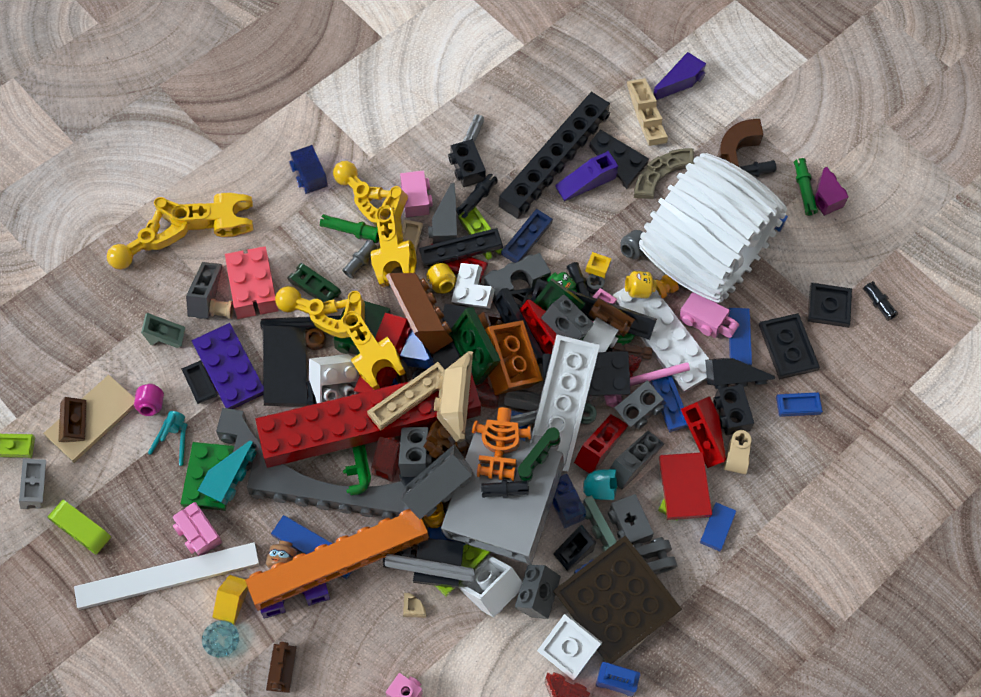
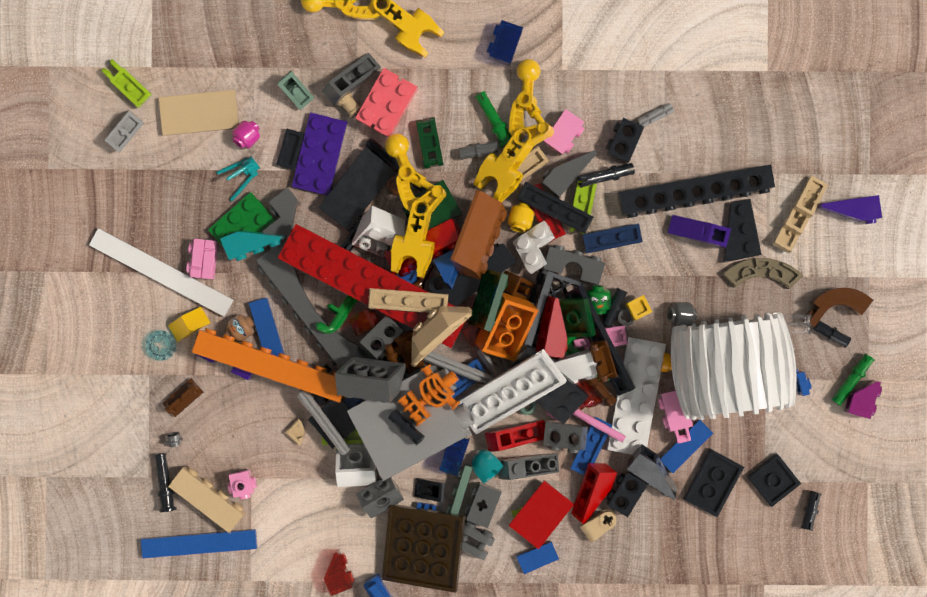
camera: 45 degrees right, 25 degrees up
(72, 420) = (184, 105): reddish brown slope -> none
(79, 527) = (131, 189): lime beam -> none
(539, 453) = (447, 426): dark green plate -> none
(567, 319) = (567, 338): dark grey brick -> none
(569, 646) = (367, 547): white plate -> none
(640, 284) = (650, 352): yellow head -> none
(799, 404) = (676, 528): blue tile -> none

